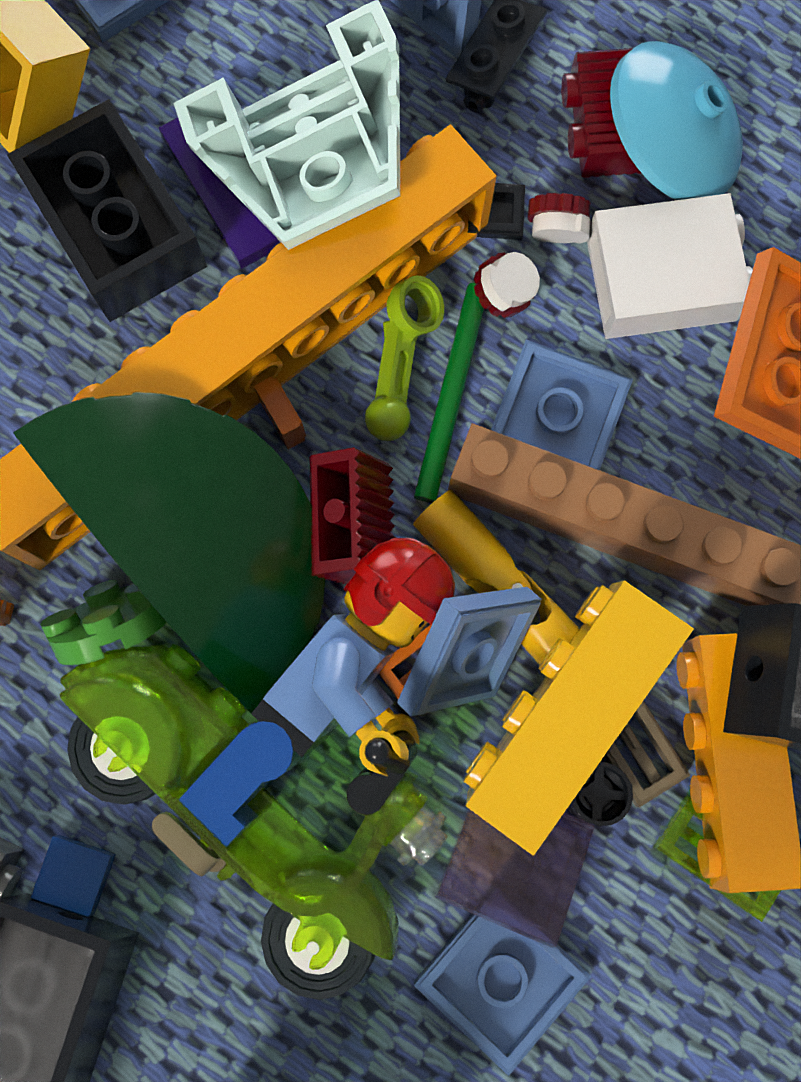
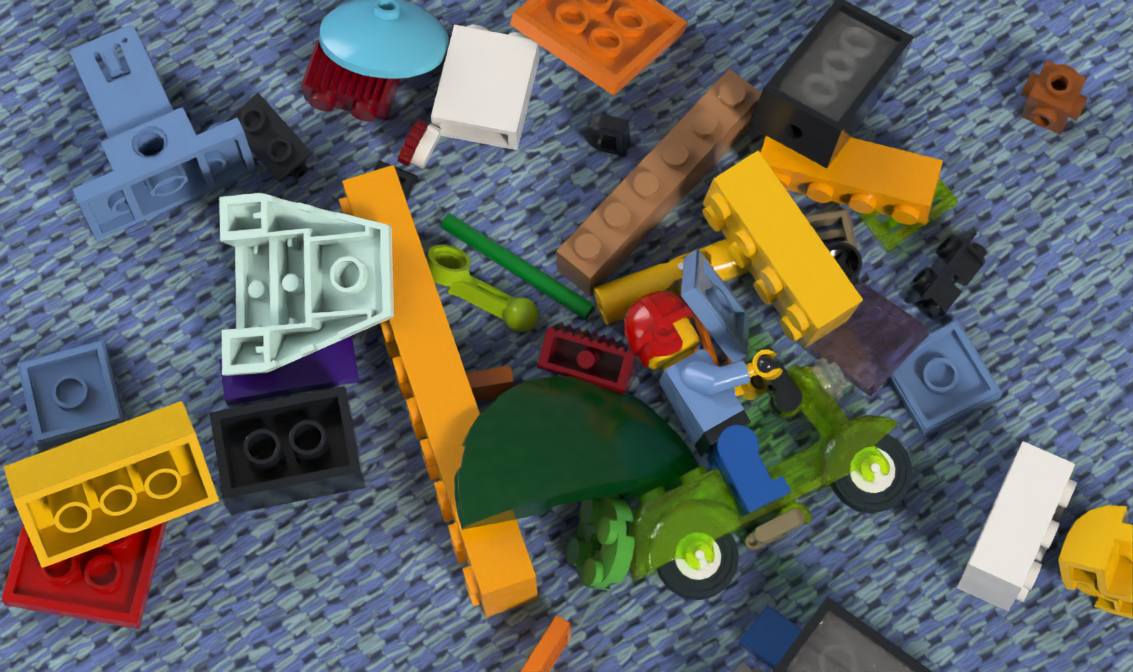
camera: 65 degrees left, 10 degrees down
(506, 283) = (453, 197): white piece -> none
(562, 404) = (556, 196): medium blue tile -> none
(666, 436) = (608, 134): none -> black tile
(677, 946) = (934, 285): none -> black hinge

